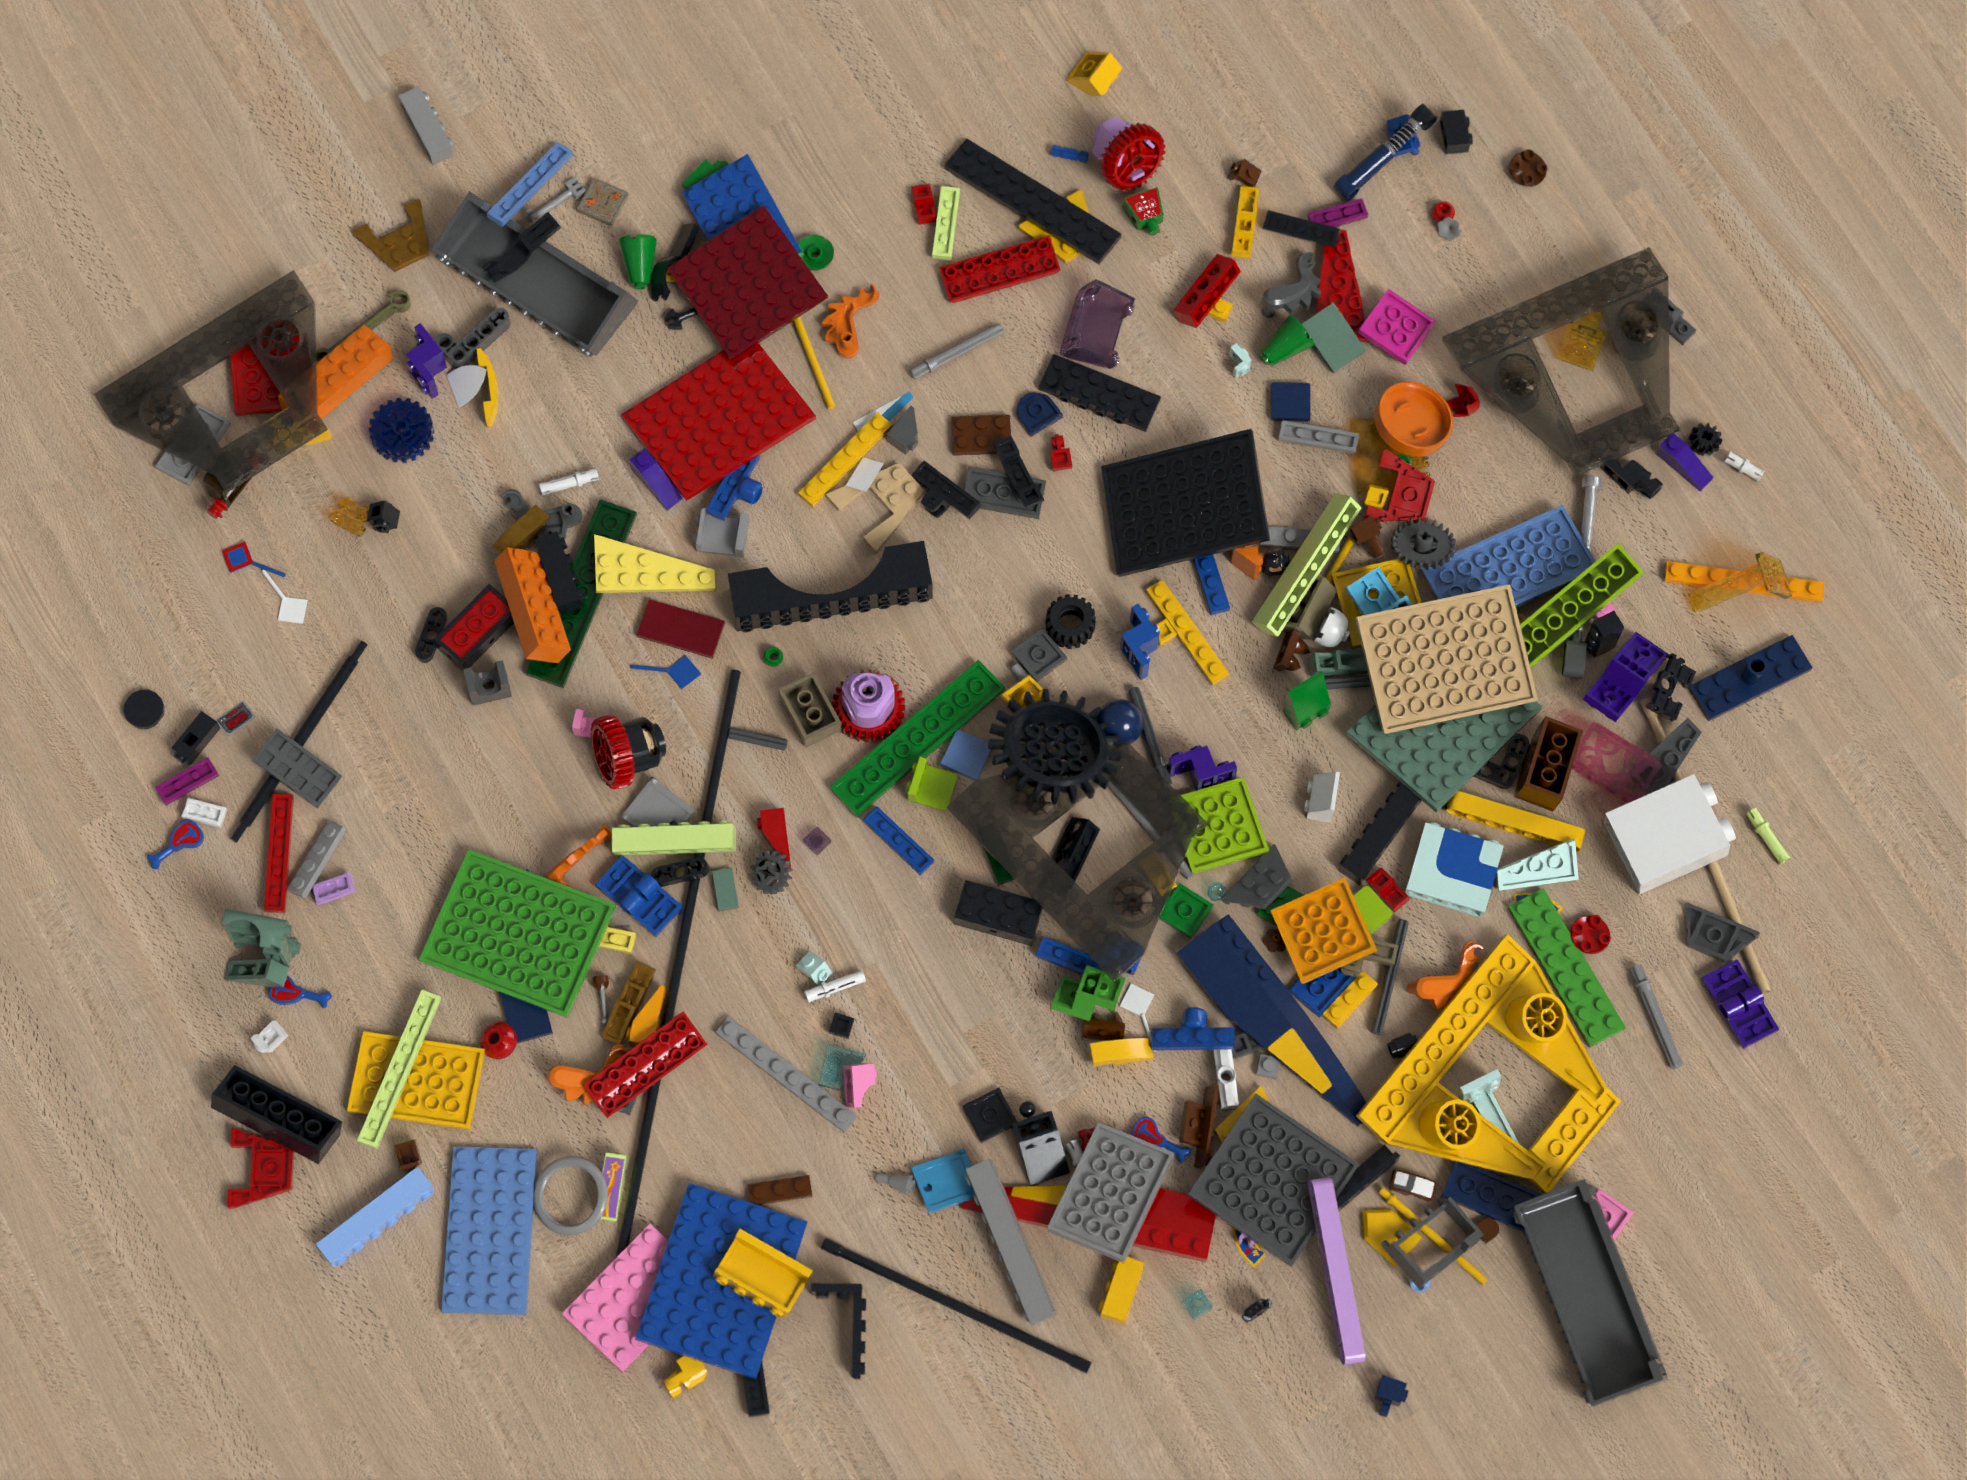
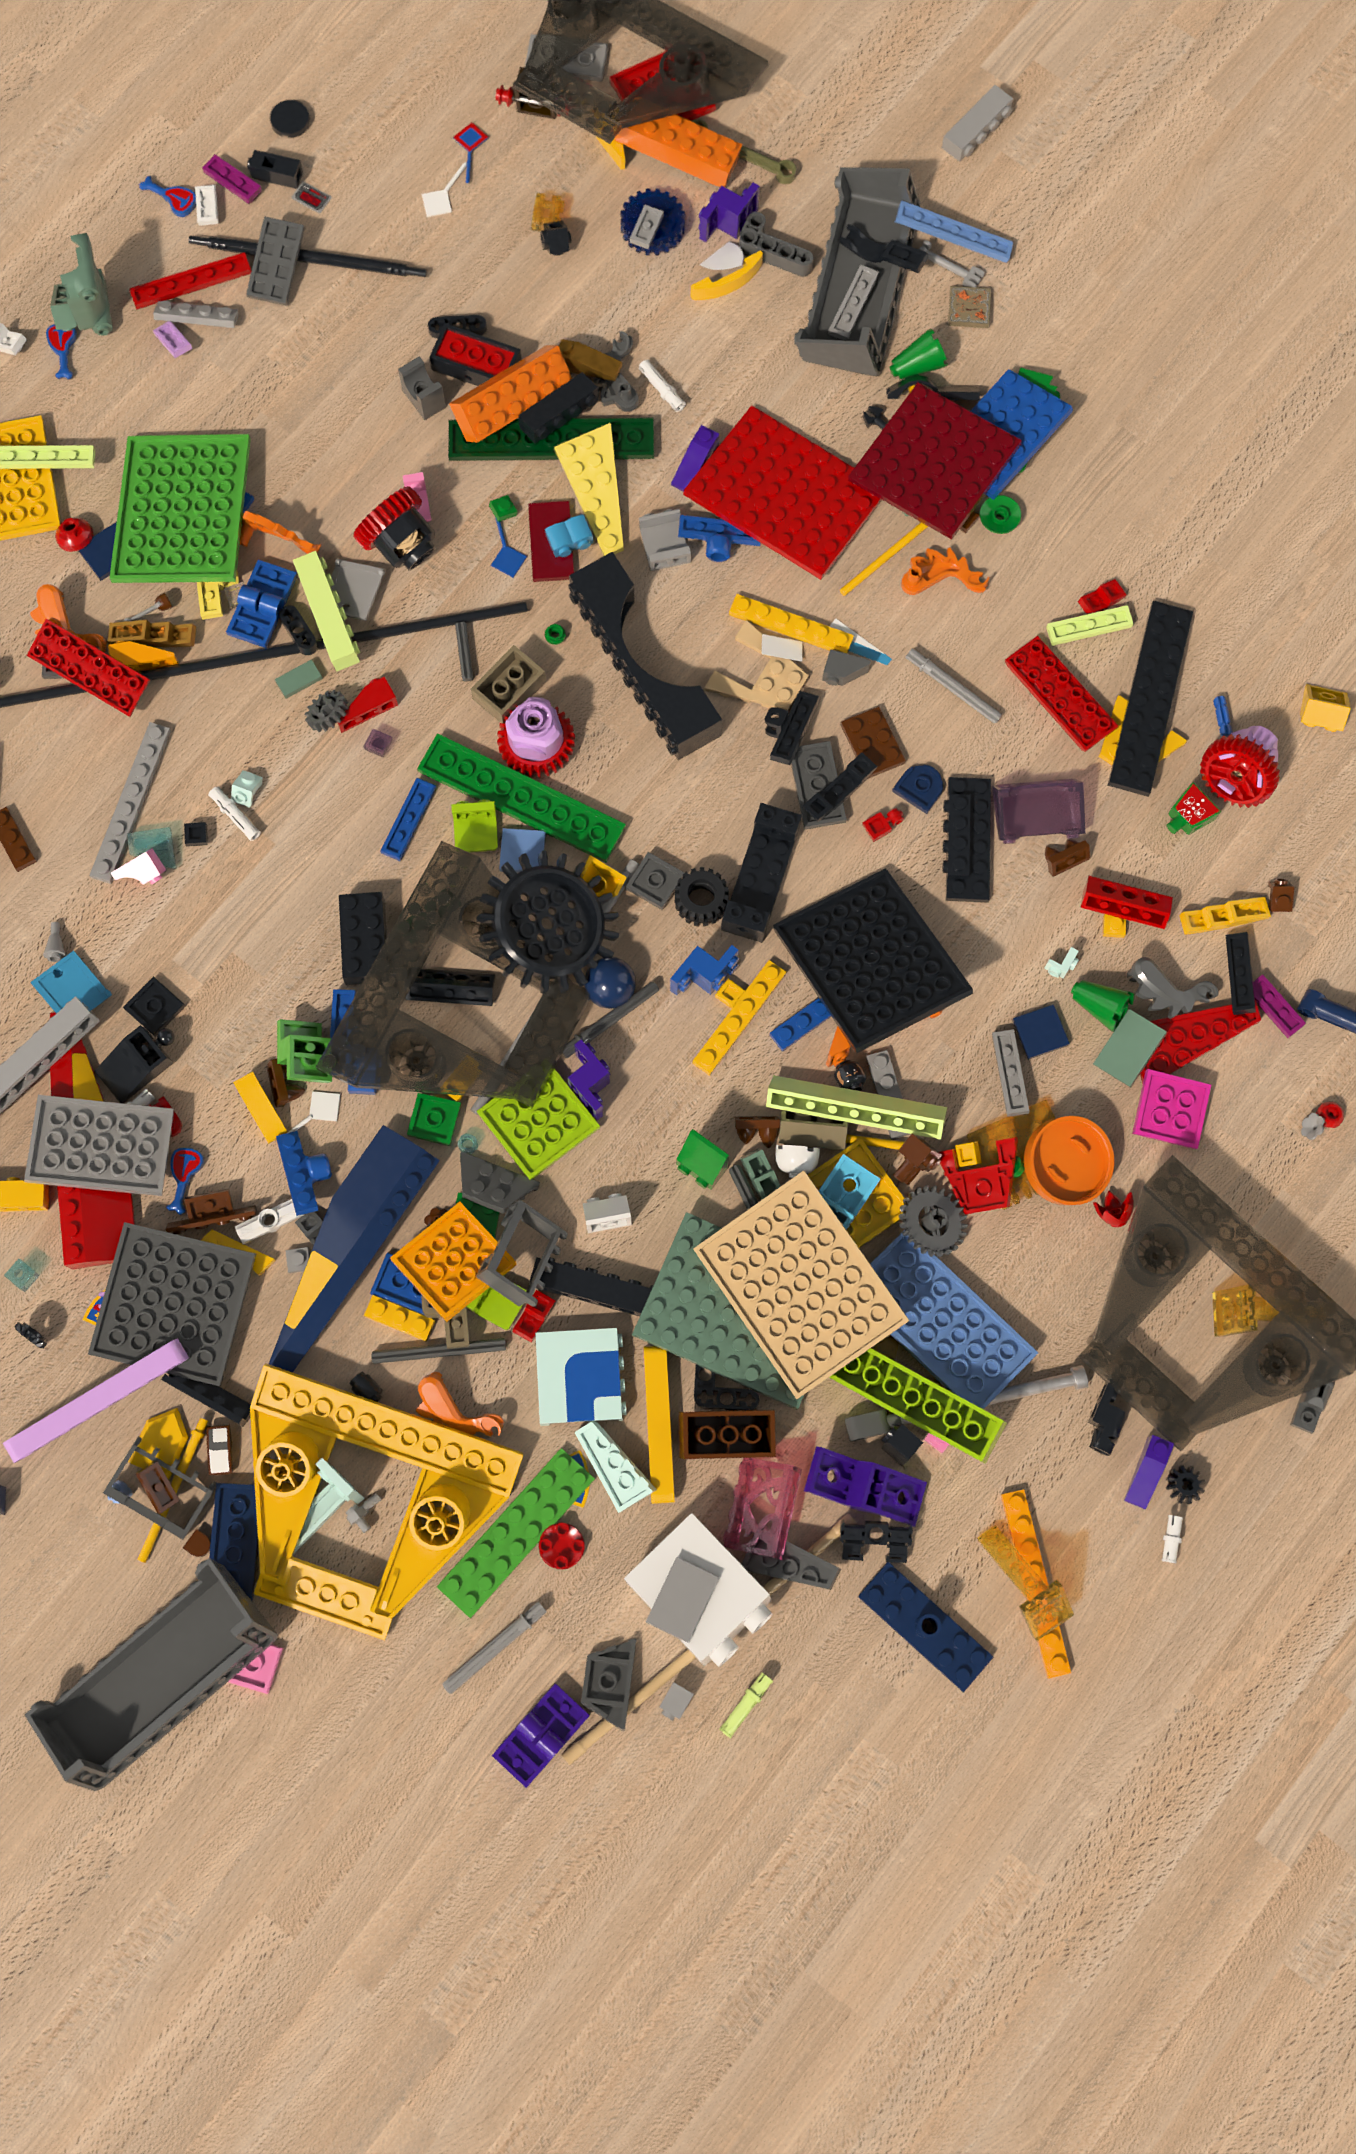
camera: 70 degrees right, 5 degrees up
(399, 246) = (843, 150): pearl gold wing -> none
(413, 433) = (646, 227): none -> light grey plate
(559, 293) = (853, 303): none -> light grey plate
(632, 658) = (503, 508): none -> green plate
(688, 608) = (569, 536): none -> dark azure brick
(1065, 566) = (761, 873): none -> black plate
(1148, 328) = (1073, 855): none -> reddish brown tile
(1302, 866) = (487, 1271): none -> dark grey hinge
(1430, 1241) = (157, 1487): none -> reddish brown tile
(1508, 1089) = (357, 1514): none -> light grey piece
(1676, 842) = (682, 1600): none -> light grey tile
(1747, 888) = (675, 1701): none -> light grey brick

